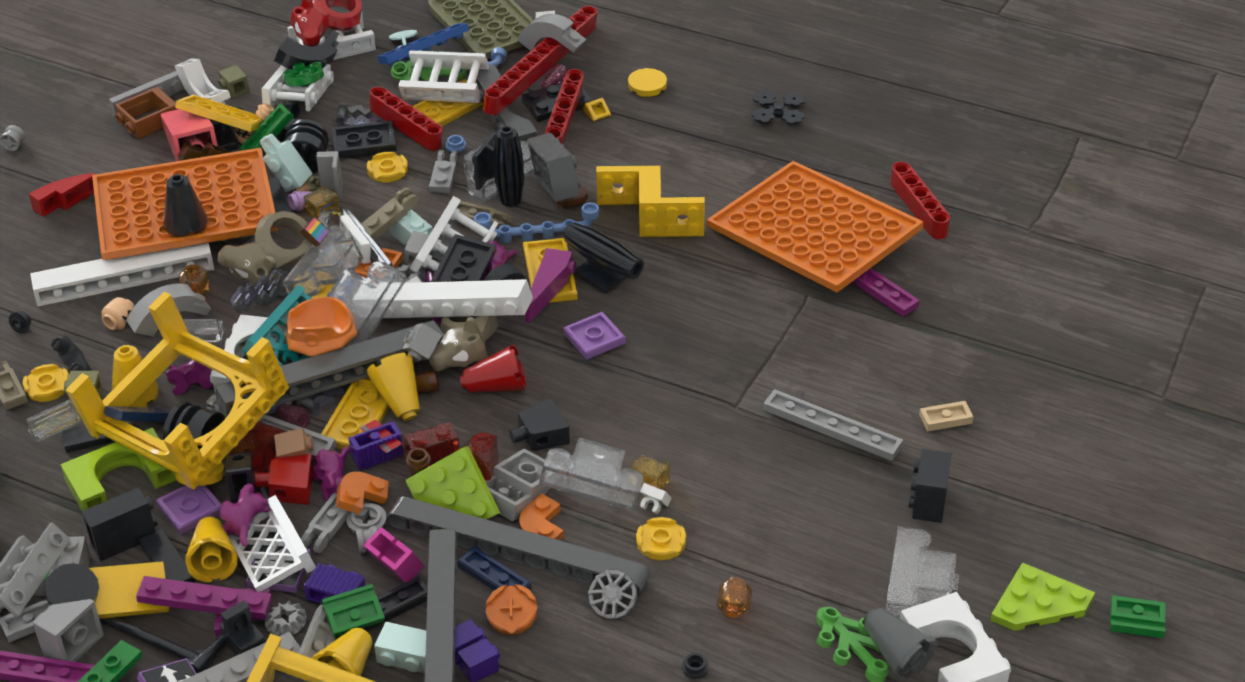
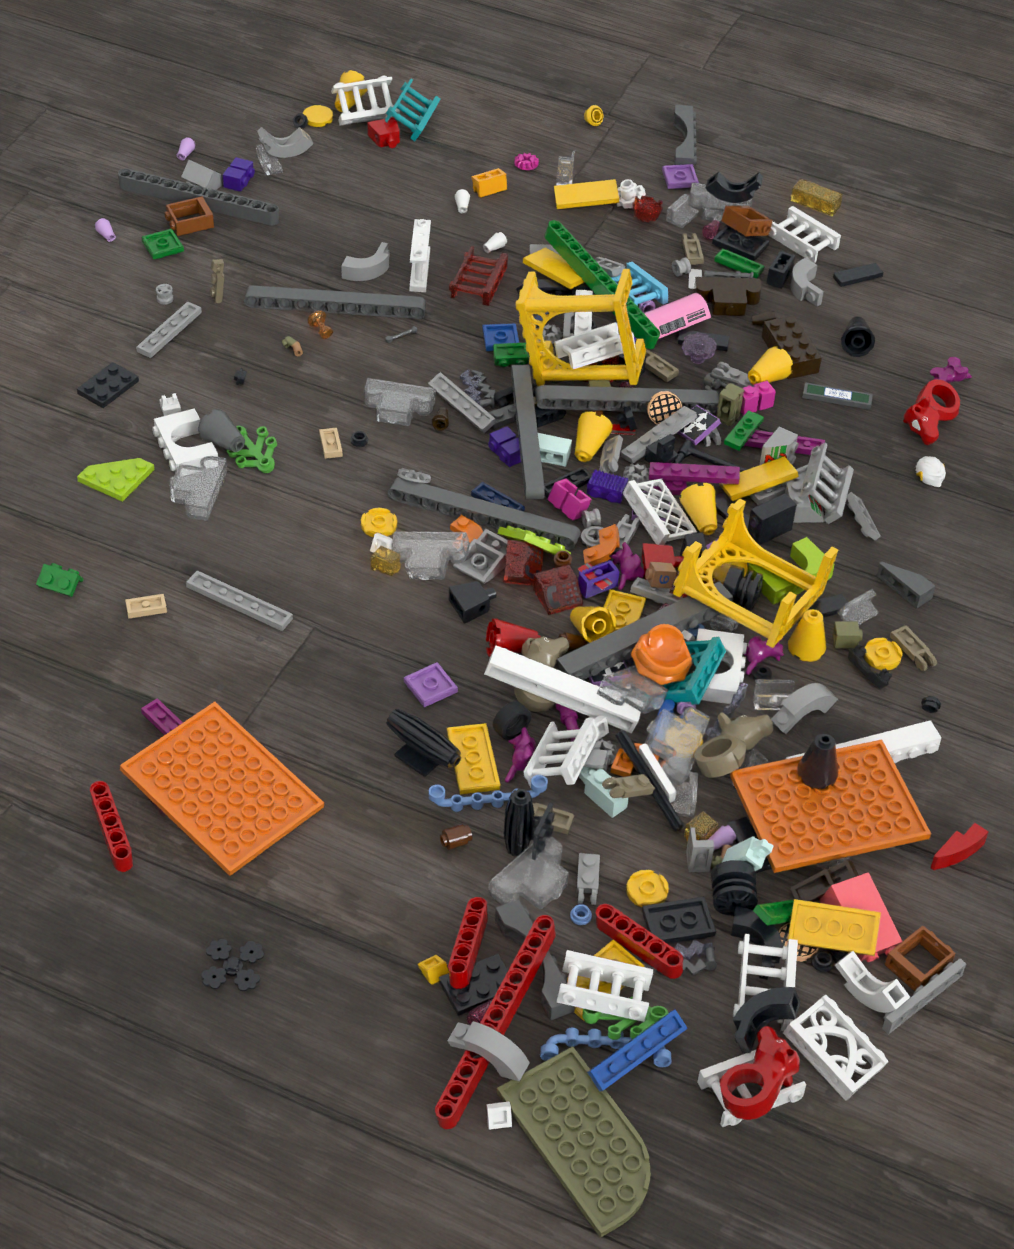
camera: 175 degrees right, 5 degrees up
(71, 584) = (783, 463): black tile -> none
(116, 313) = (848, 710): light nougat head -> none
(136, 413) = (798, 585): dark blue tile -> none
(196, 278) = (792, 735): clear orange head -> none
(231, 49) = (840, 1026): none -> white fence
(234, 81) = (848, 1005): olive brick -> none
(241, 514) = (685, 521): magenta animal -> none
(264, 111) = (793, 934): light nougat plate -> none
(303, 75) = (759, 974): green tile -> none
(314, 231) = (692, 755): tile -> none
(353, 610) = (590, 461): green plate -> none
(403, 35) = (667, 1094): light aqua piece -> none
(421, 342) = (574, 639): light grey brick -> none
(465, 260) = (549, 723): black plate -> none
(511, 609) = (483, 473): orange tile -> none
(550, 279) = (470, 727): magenta slope -> none
(554, 167) = (475, 835): dark grey brick -> none
(647, 82) = (376, 1011): yellow tile -> none
(656, 214) = (374, 794): yellow bracket -> none
(734, 597) = (329, 474): clear orange head -> none
(737, 656) = (330, 443): none -> tan plate
(930, 485) = (174, 535): black brick -> none
(1063, 448) = (58, 580): none -> green bracket
(1137, 616) = (54, 460): green plate -> none

